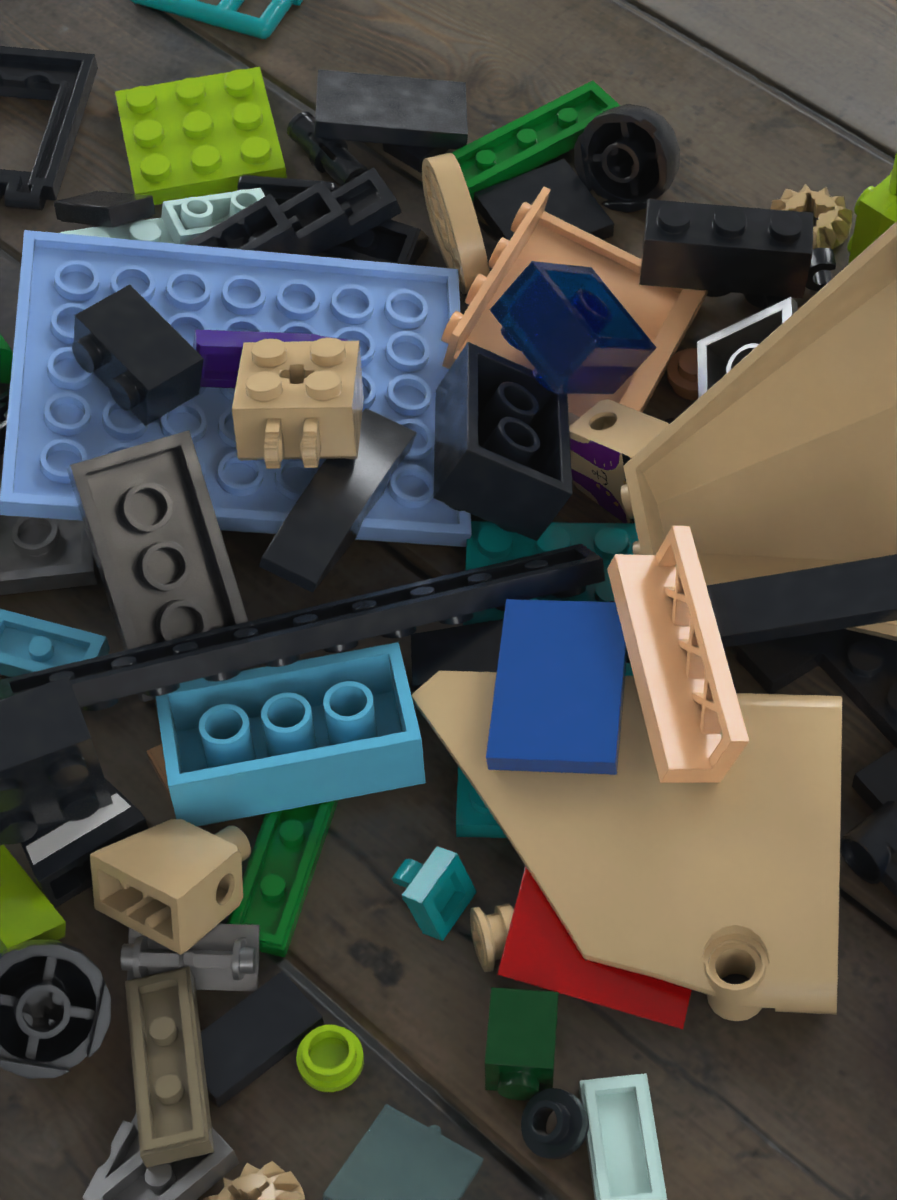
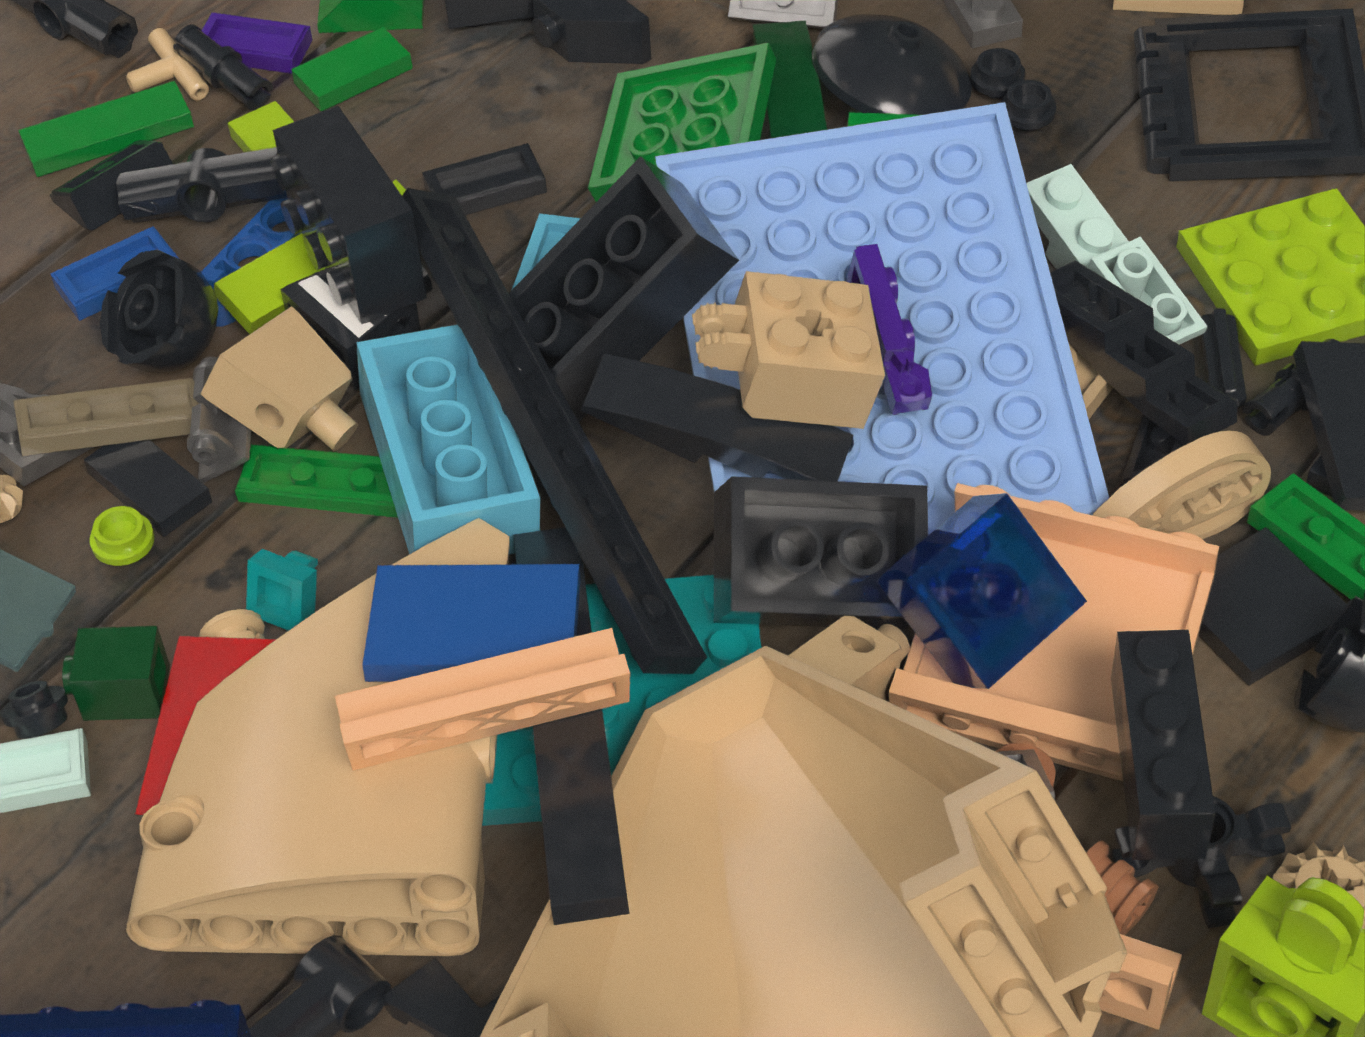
camera: 85 degrees right, 5 degrees down
(105, 208) = (1130, 200): black tile -> none
(136, 355) = (853, 204): black brick -> none

